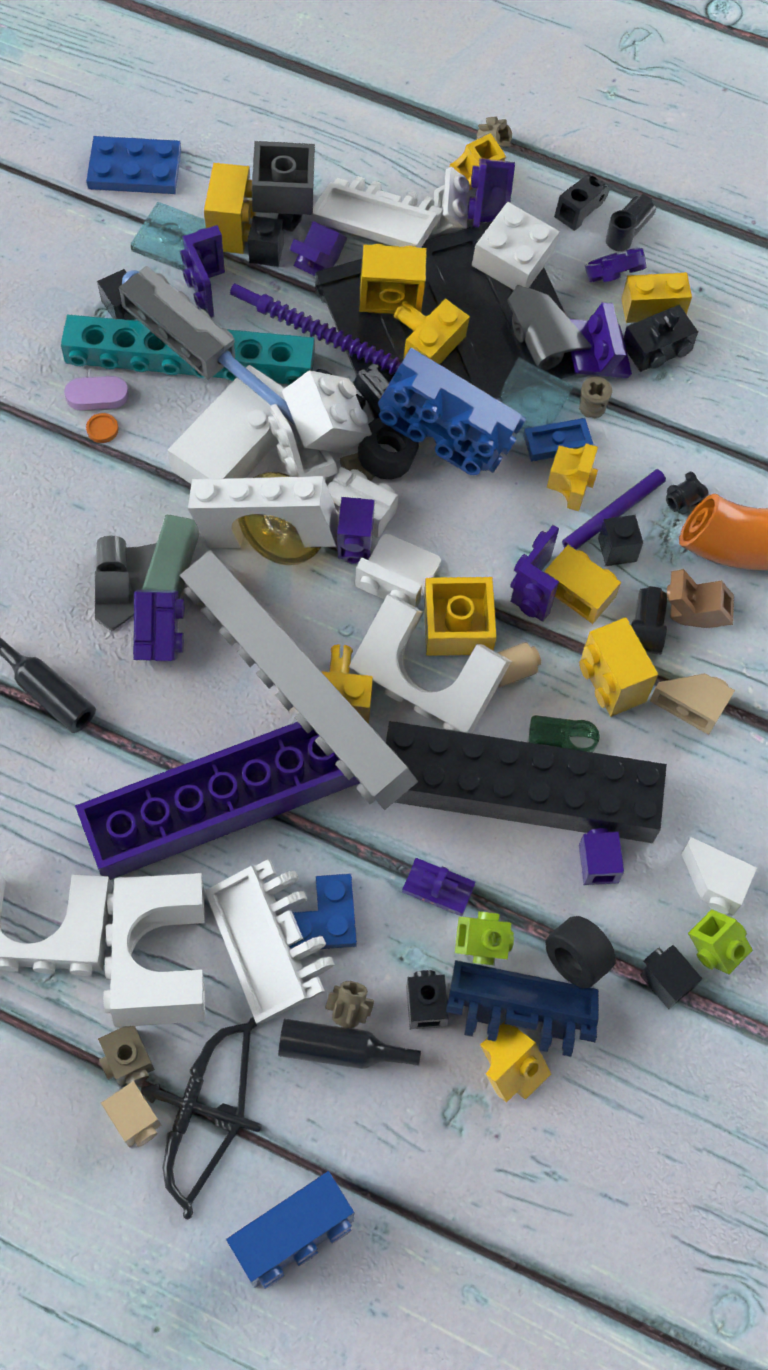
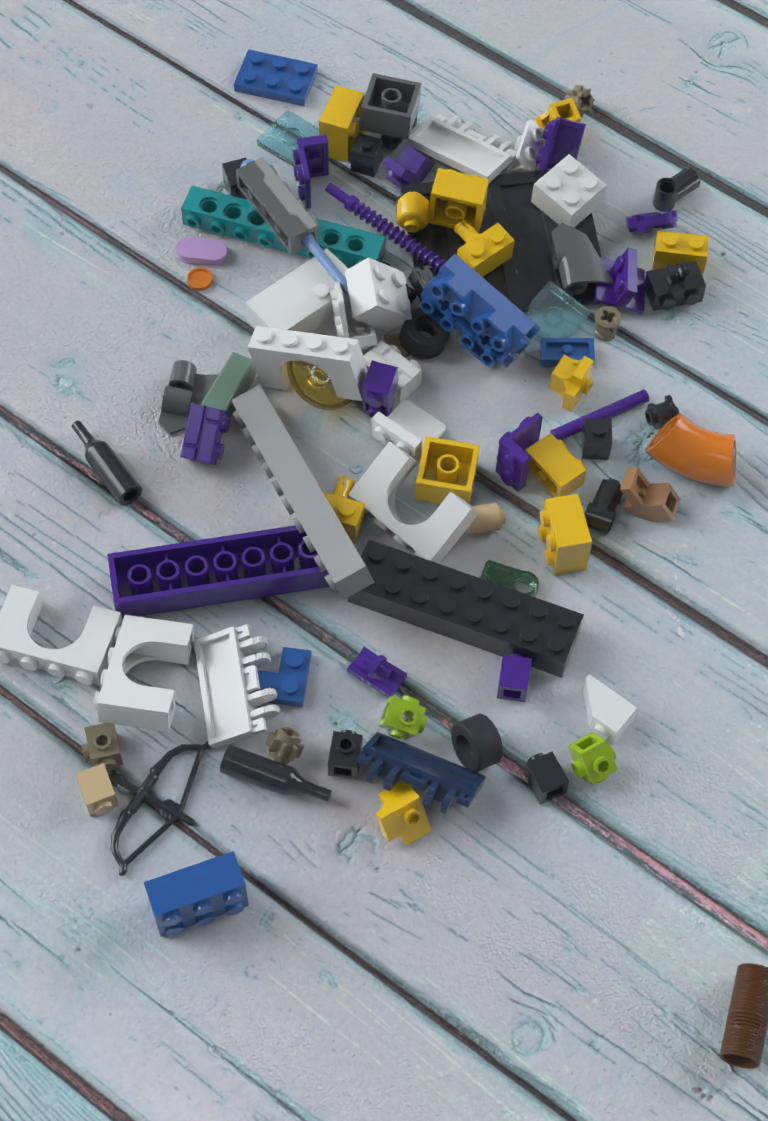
camera: 15 degrees right, 5 degrees down
(340, 302) = (412, 211): none -> yellow head
(580, 201) = (638, 165): black leg -> none
(694, 699) = (624, 573): tan slope -> none

